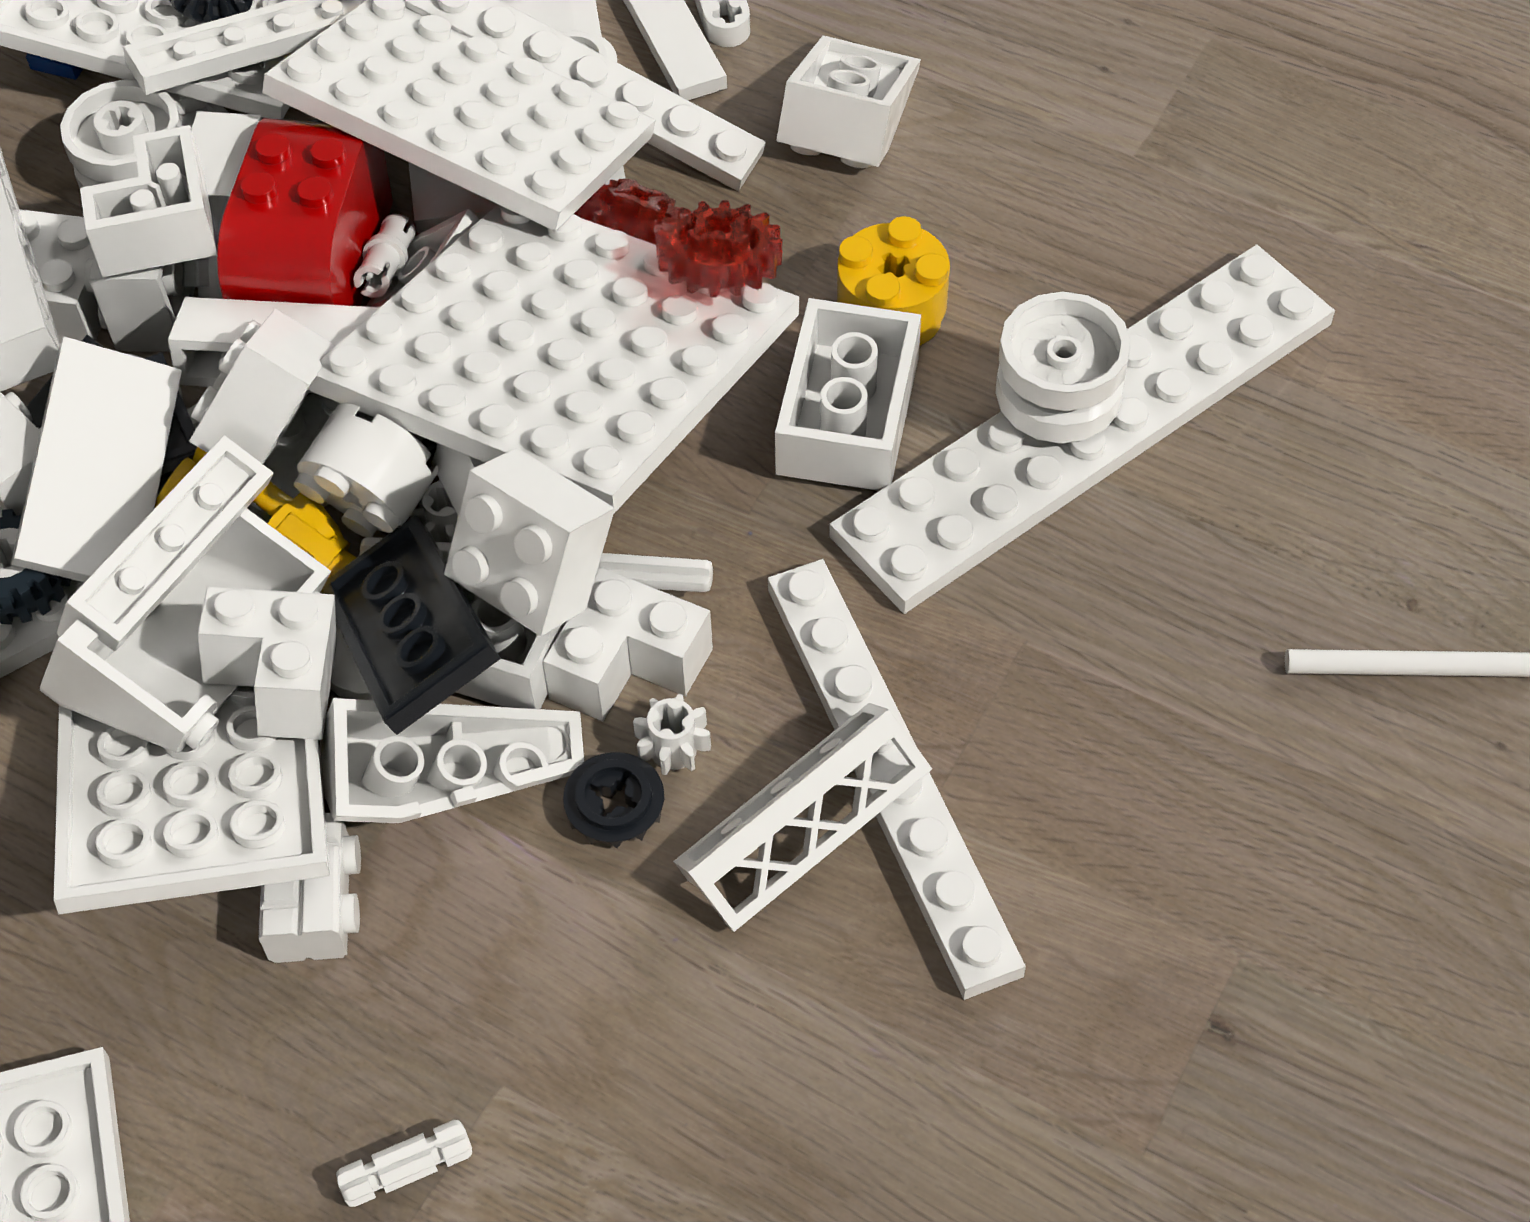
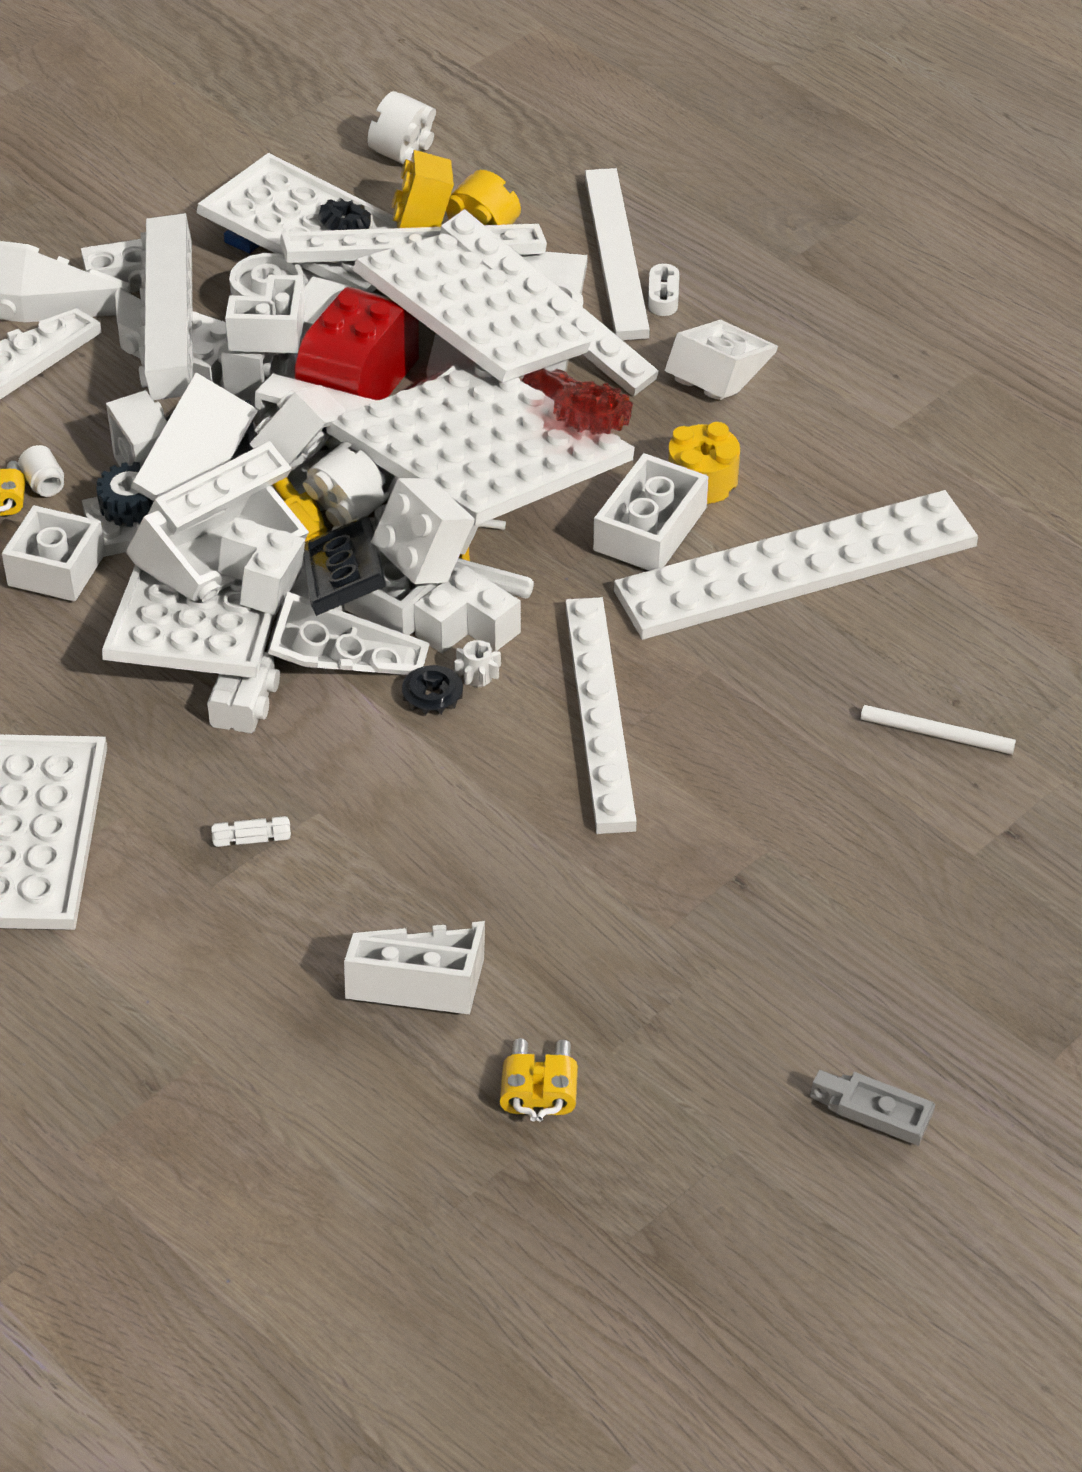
camera: 15 degrees right, 10 degrees down
(384, 256) = (400, 380): white pin -> none
(787, 797) = (531, 703): white fence -> none
(1062, 367) = (782, 521): white wheel -> none

